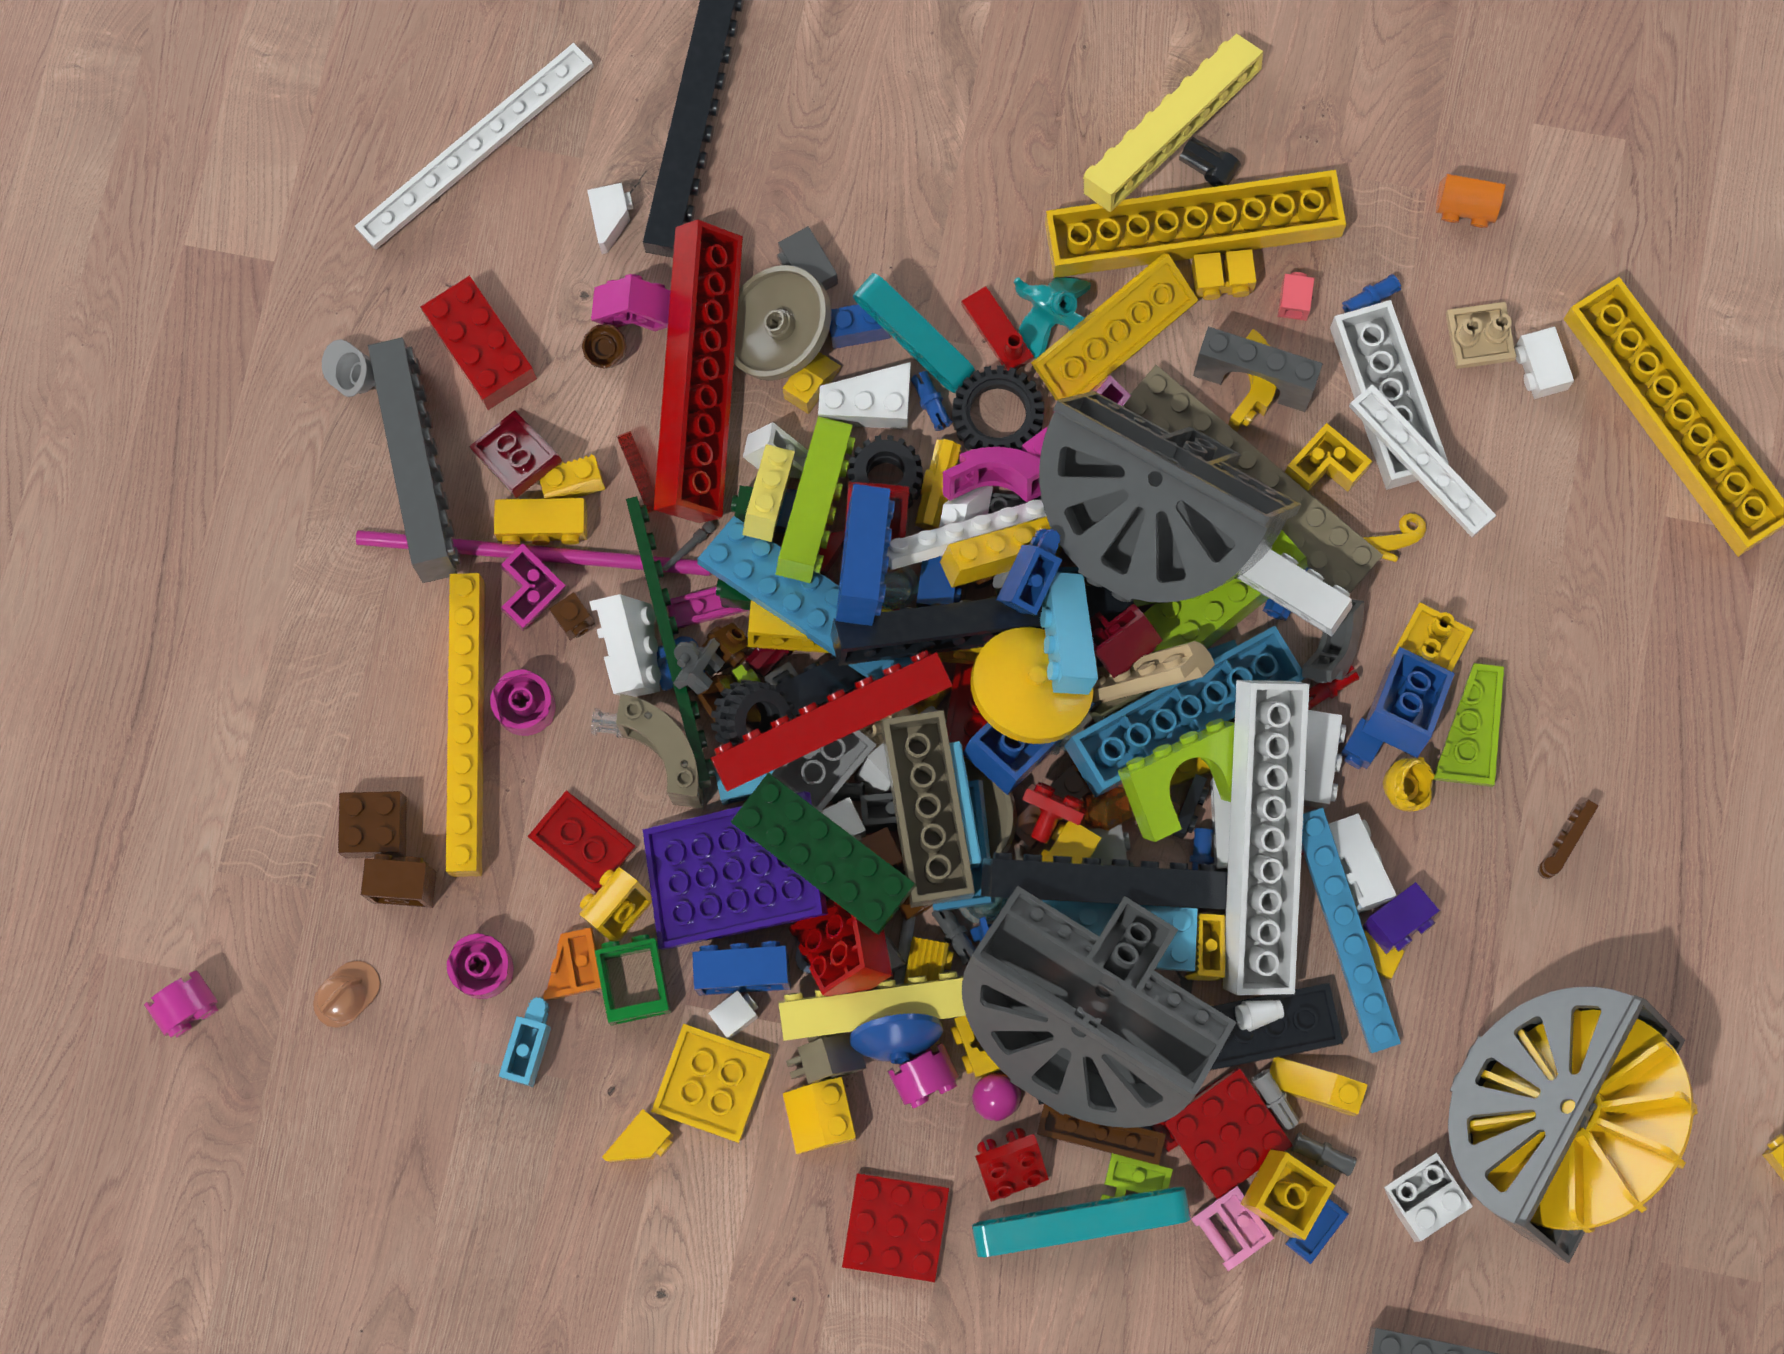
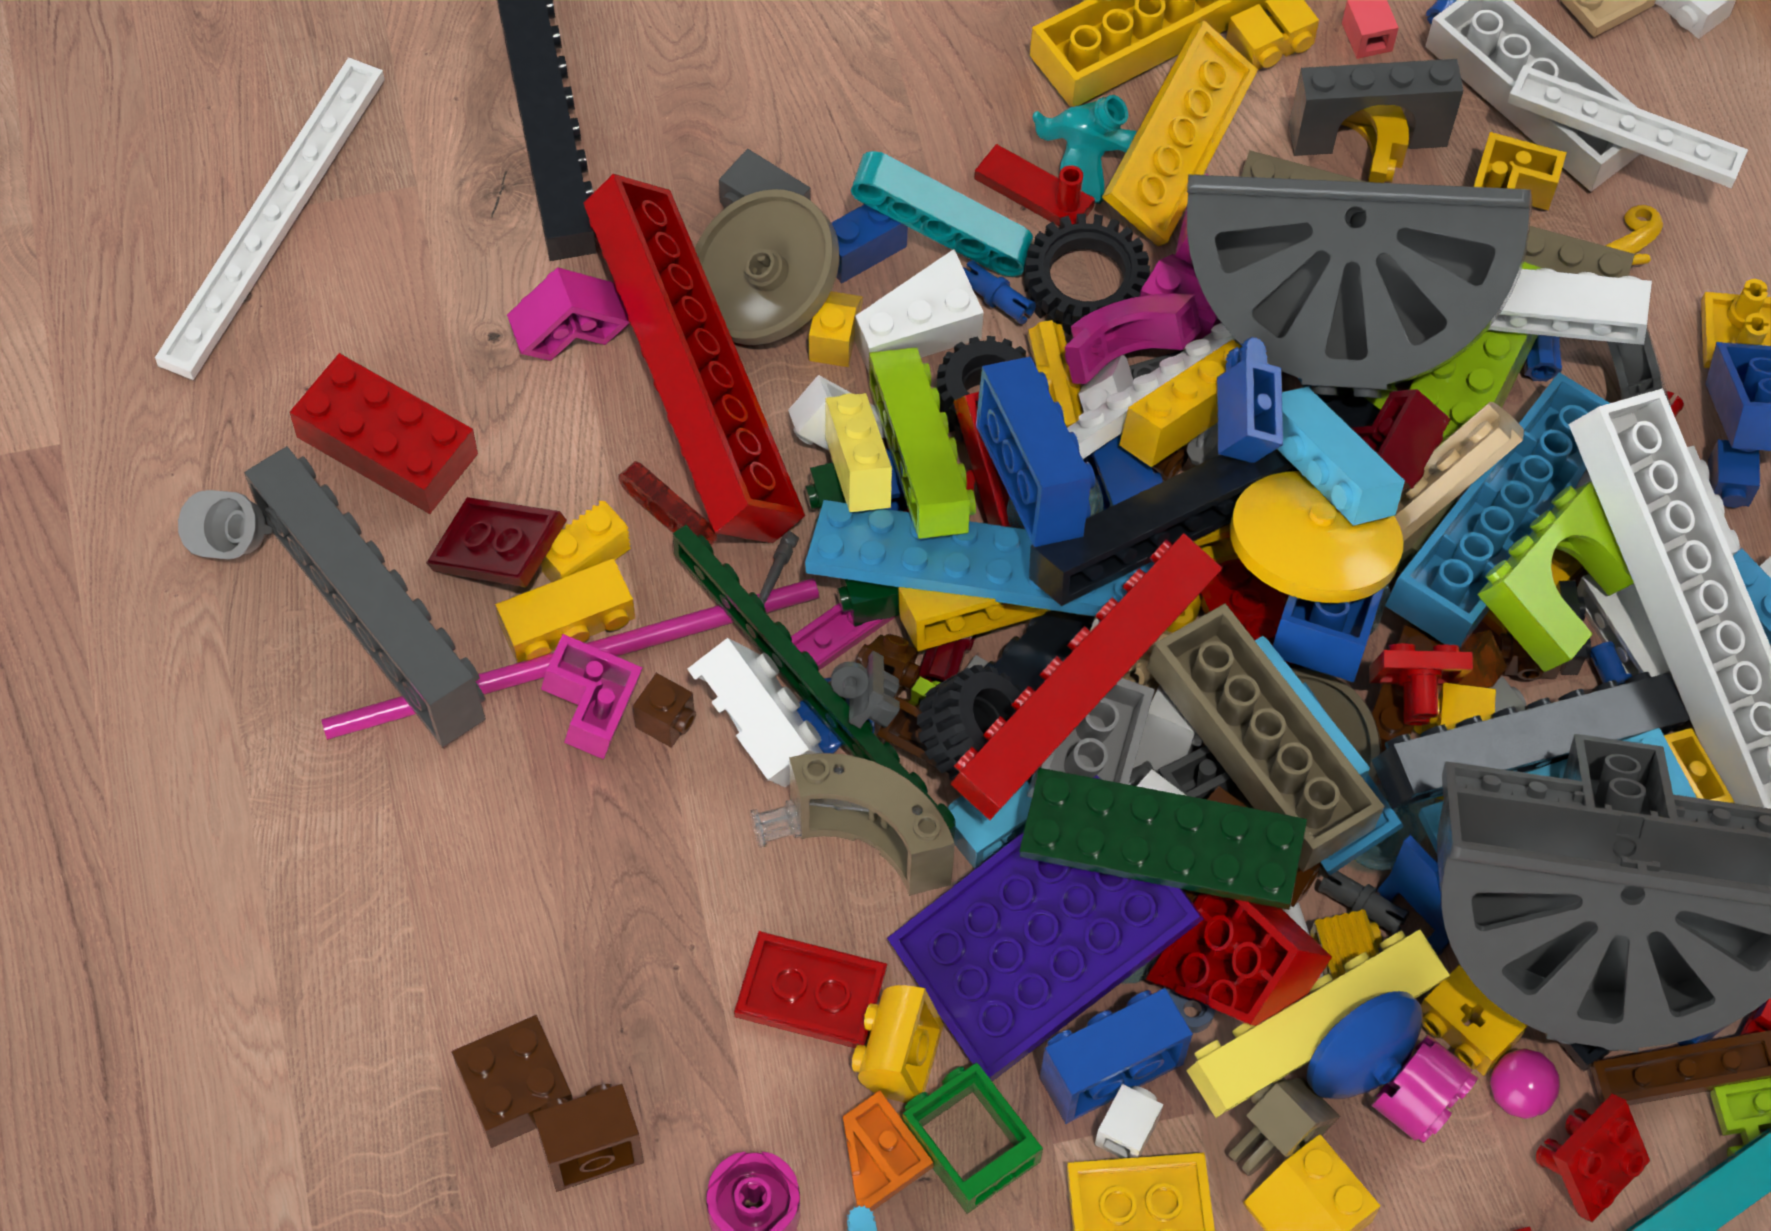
camera: 30 degrees left, 15 degrees down
(465, 725) = (586, 906): yellow brick -> none
(507, 698) = (671, 841): dark pink brick -> none
(604, 346) = (552, 377): reddish brown hair -> none
(610, 213) = (483, 227): white slope -> none

